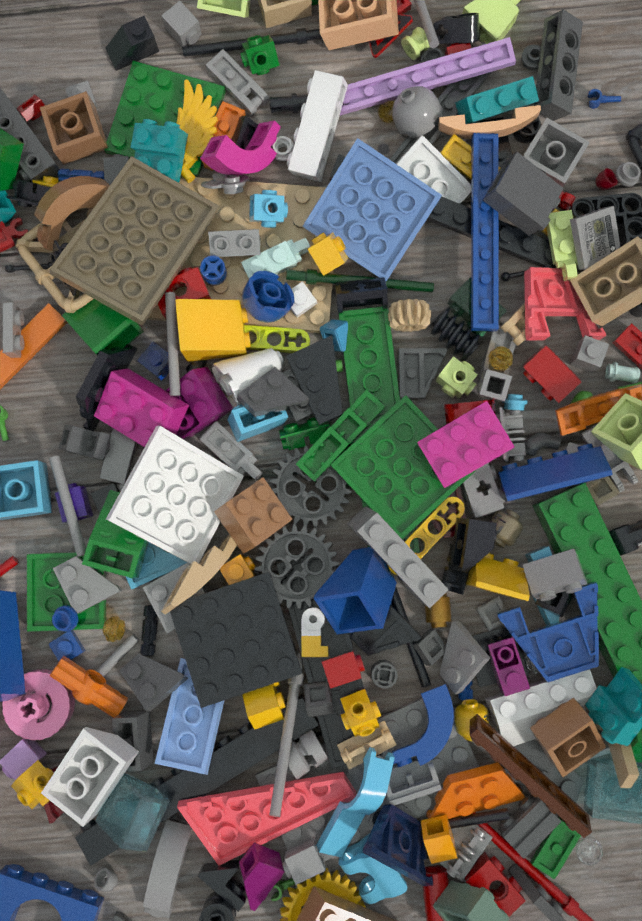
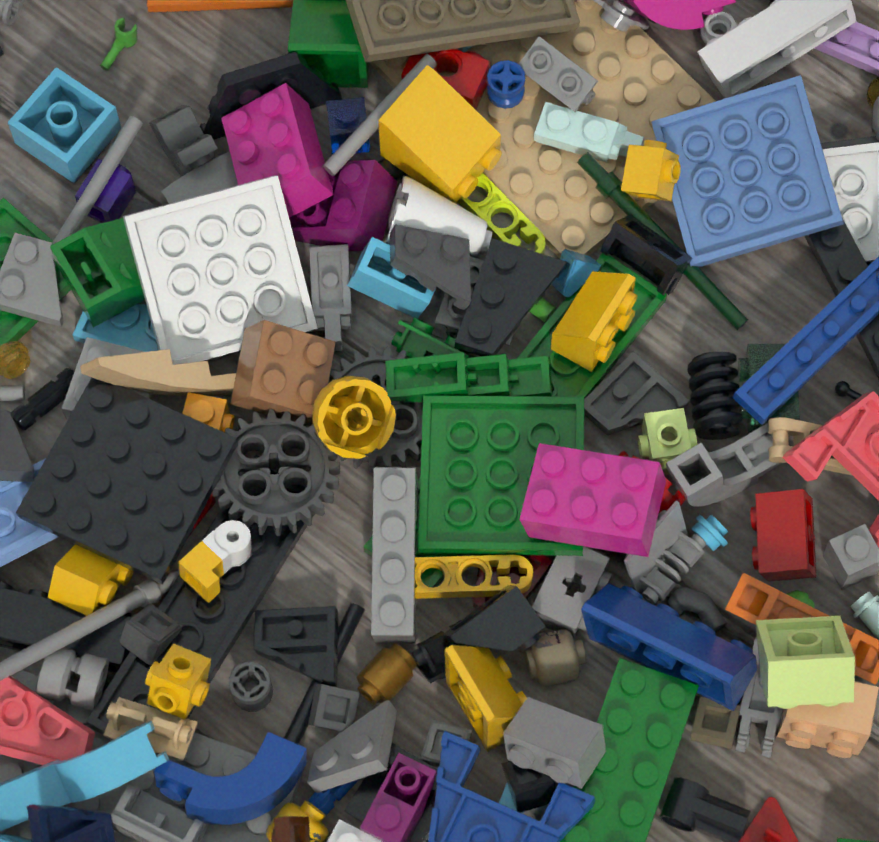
camera: 45 degrees right, 15 degrees down
(259, 208) = (626, 56): medium azure brick -> none
(267, 297) = (534, 157): blue cylinder -> none
(303, 299) = (571, 198): white plate -> none
(312, 508) = (353, 416): none -> yellow cylinder
(343, 669) = (209, 613): red brick -> none
(357, 593) = (310, 557): blue slope -> none
(372, 350) = (595, 318): none -> yellow slope
(409, 315) = (680, 324): tan gear -> none
(500, 358) = (736, 458): clear yellow plate -> none

